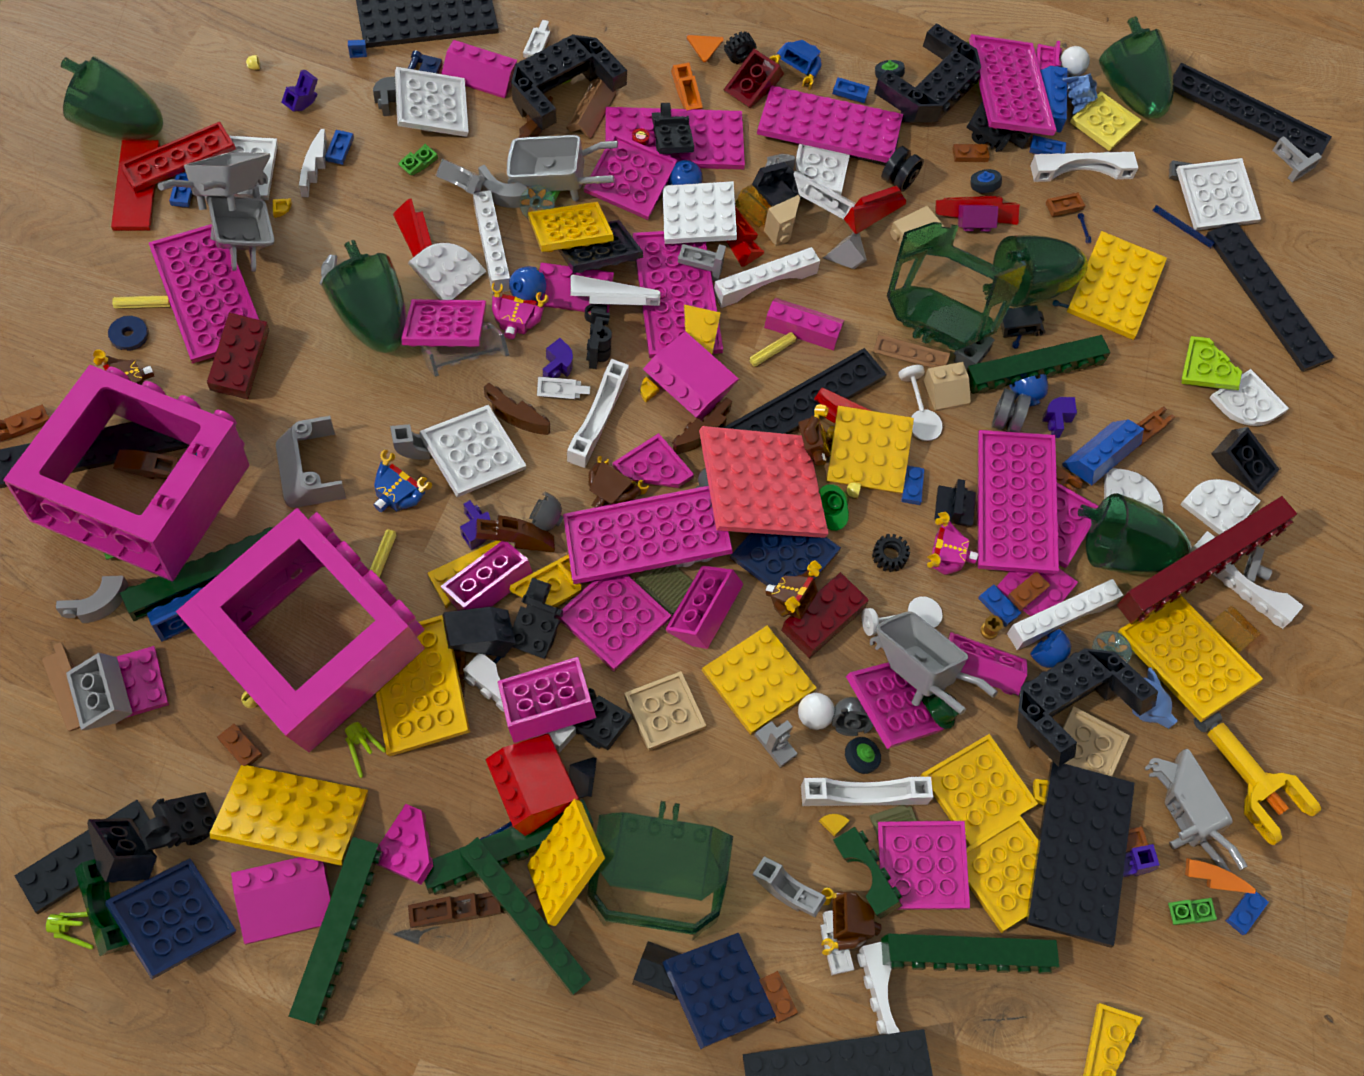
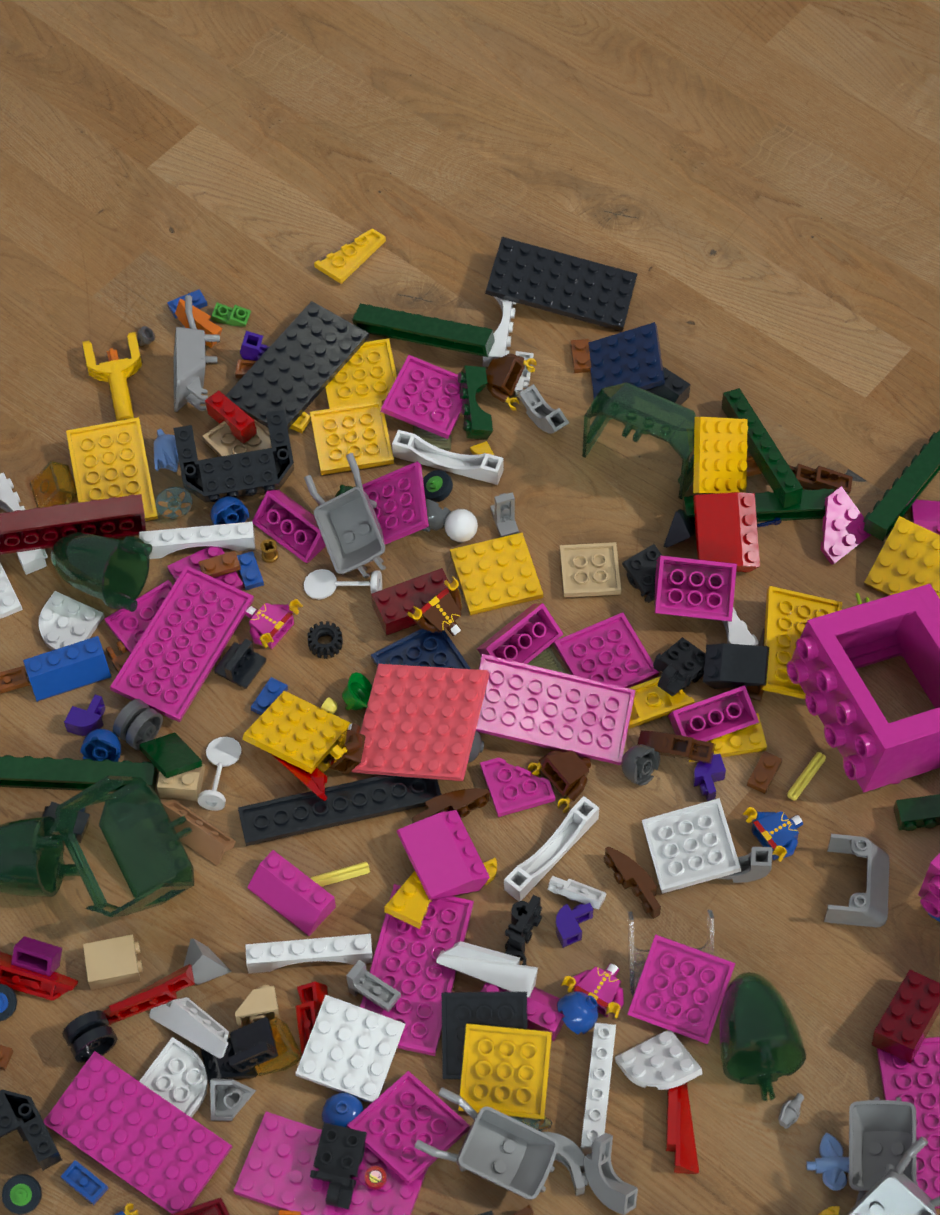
camera: 150 degrees left, 5 degrees down
(285, 239) = (832, 1163): none -> light blue plant
(423, 550) = (764, 772): none -> dark orange plate
(967, 395) = (170, 755): none -> dark green tile
(1100, 749) = (239, 422): none -> red arch
(1263, 846) = (145, 336): none -> flat silver tile

